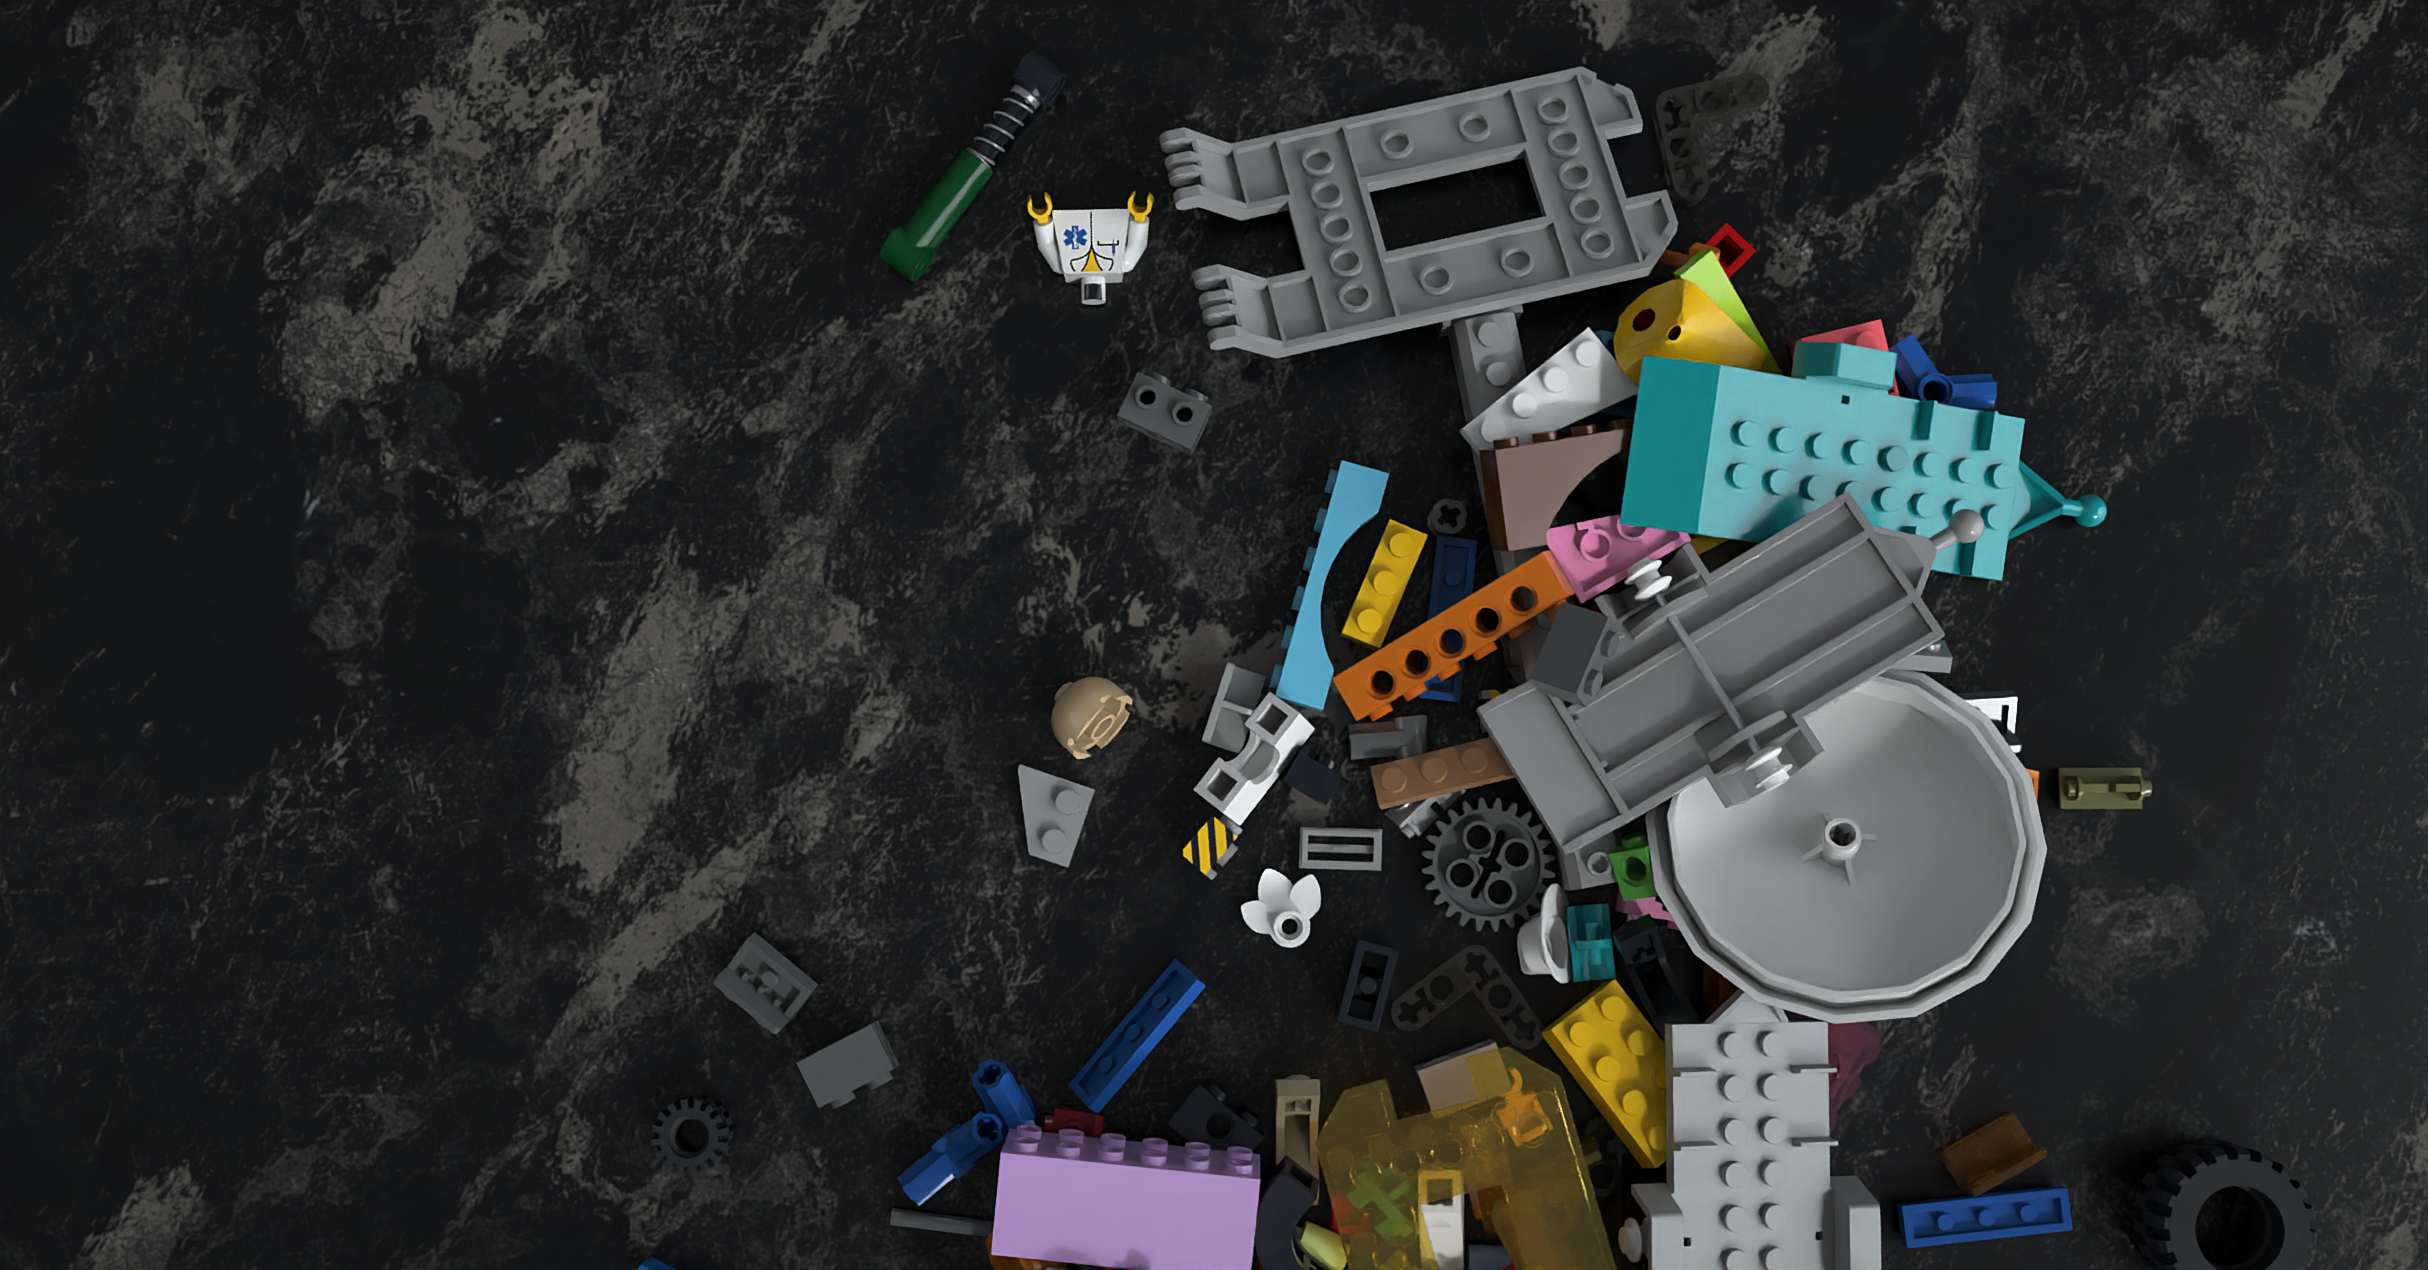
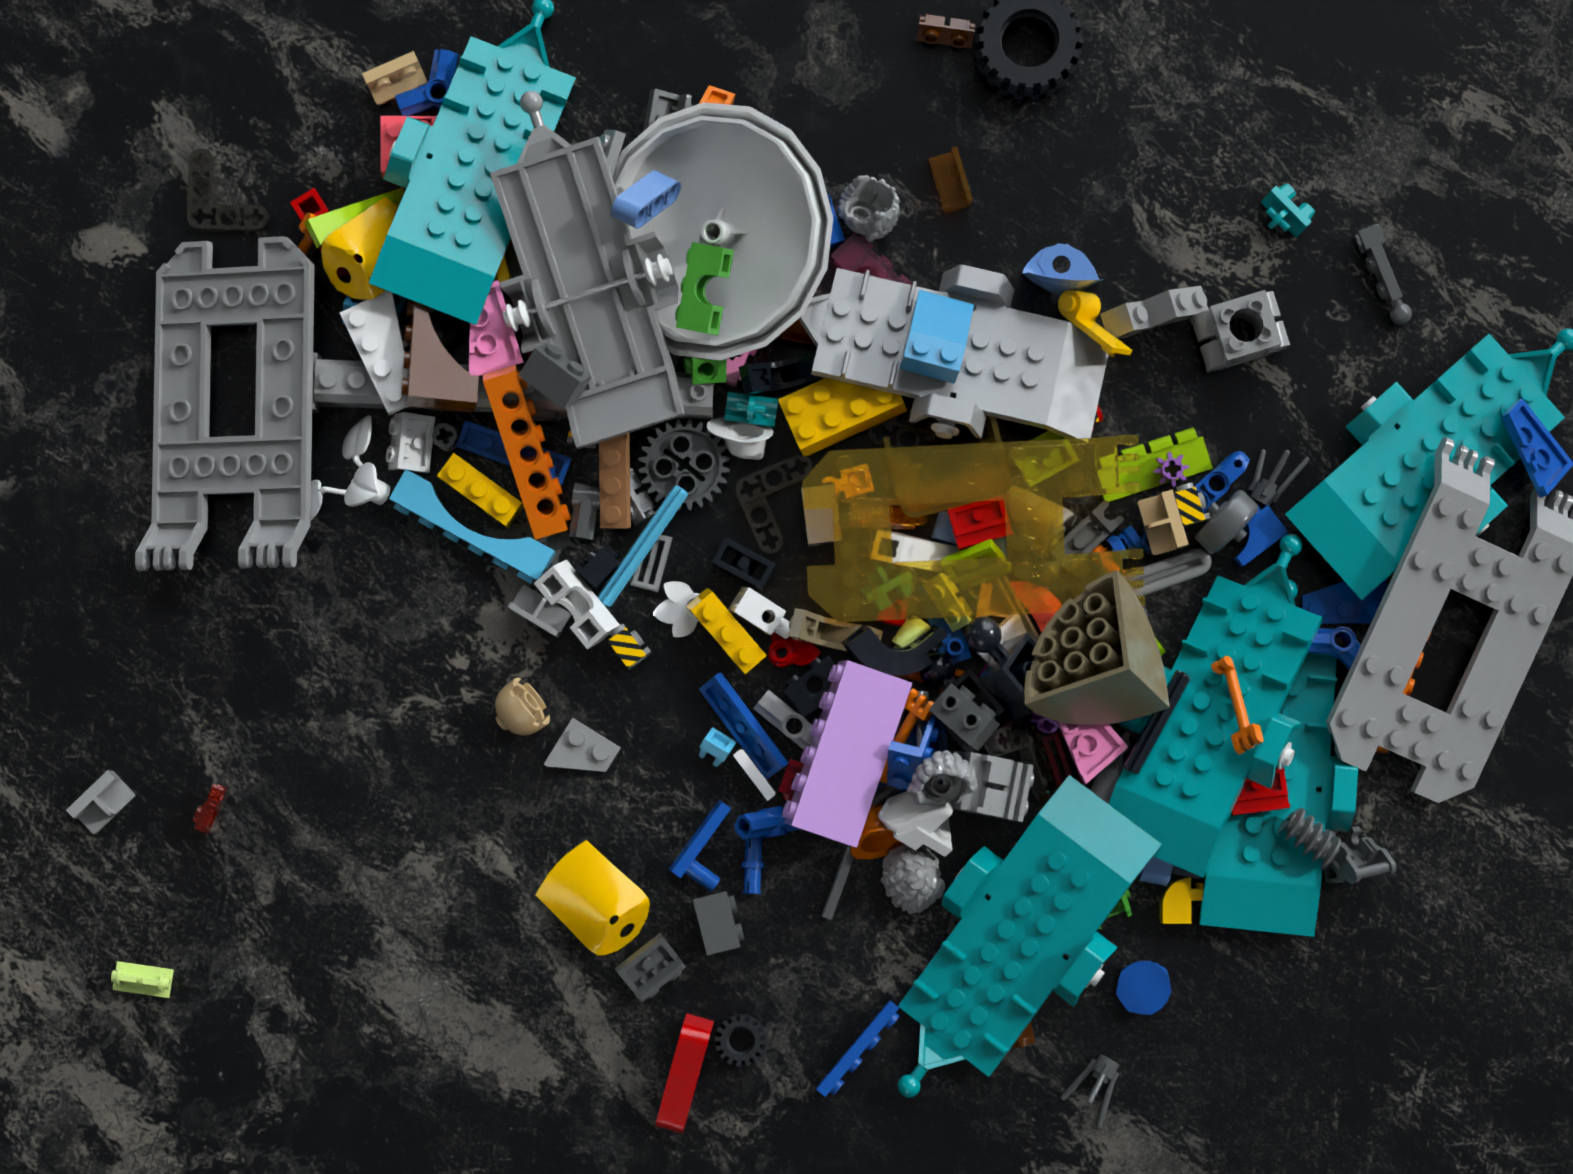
camera: 75 degrees left, 0 degrees up
(602, 282) = (142, 979): none -> yellowish green hinge
(629, 1068) = (684, 1073): none -> red beam
(833, 169) = (101, 801): none -> light grey panel
(846, 315) = (207, 813): none -> clear red plate
(849, 876) = (587, 892): none -> yellow piece
(914, 244) = (166, 754): piece -> none
(930, 997) = (685, 861): none -> blue piece
(938, 1095) = (753, 866): none -> blue pin
(951, 1156) = (793, 865): blue piece -> none
(1071, 1068) = (754, 774): none -> white tile
(1092, 244) = (198, 634): white torso -> none
(1100, 1005) = (717, 745): none -> medium azure tile
(1163, 1084) = (778, 714): none -> light grey piece
(1165, 412) = (327, 610): dark grey brick -> none
(1259, 1089) = (797, 652): none -> red plate
(1265, 981) = (726, 630): none -> yellow arch
(1307, 1011) = (750, 606): none -> white torso
(1353, 420) = (365, 484): none -> white plant
(1360, 832) = (642, 545): none -> medium azure axle
(1428, 472) = (410, 442): none -> white bracket
(1765, 1201) = (937, 336): none -> dark azure slope
(1793, 834) = (695, 310): none -> bright green arch
(1868, 726) = (645, 199): none -> medium blue beam
(1926, 1050) = (869, 207): none -> light grey hair
(1937, 326) = (395, 78): none -> tan bracket
(1984, 1216) = (990, 195): blue plate -> none
(2102, 788) = (729, 46): olive hinge -> none
(2201, 1081) = (933, 31): none -> reddish brown hinge

